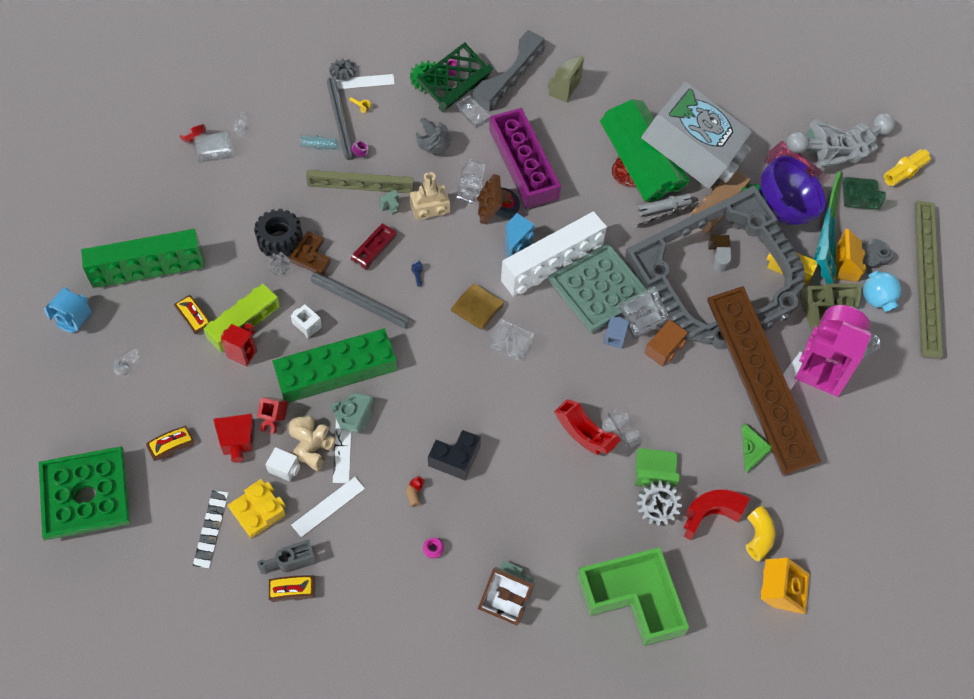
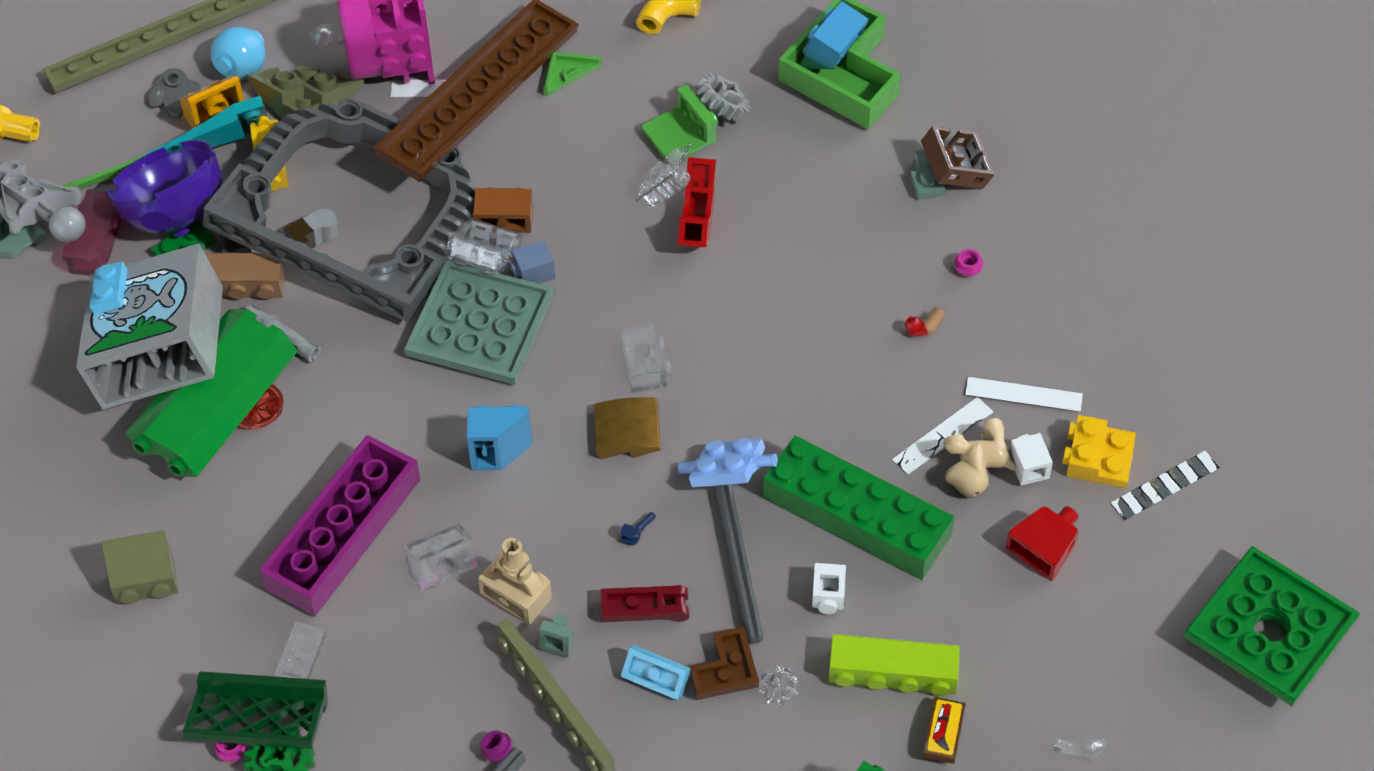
camera: 125 degrees left, 5 degrees down
(167, 443) = (1124, 600): slope -> none
(239, 343) = (937, 617): red brick -> none
(271, 410) = (980, 519): red brick -> none
(274, 222) = (734, 699): black tyre -> none
(292, 588) = (1145, 350): slope -> none
(299, 556) = (1119, 374): dark grey piece -> none
(340, 223) = (655, 672): none -> medium azure plate
(353, 412) = (896, 446): sand green plate -> none
(411, 324) = (727, 462): none -> light blue plate
(436, 139) = (398, 658): dark grey hair -> none
(455, 459) = (849, 303): black brick -> none
(492, 90) = (113, 665): dark grey arch -> none
(496, 200) = (451, 501): reddish brown plate -> none
(552, 253) = (471, 378): white brick -> none
(650, 591) = (833, 38): none -> dark azure slope
(666, 214) = (299, 321): sticker -> none
(714, 502) = (679, 64): red arch -> none
(730, 122) = (108, 287): none -> medium azure plate
(862, 193) = (85, 145): clear green bracket -> none

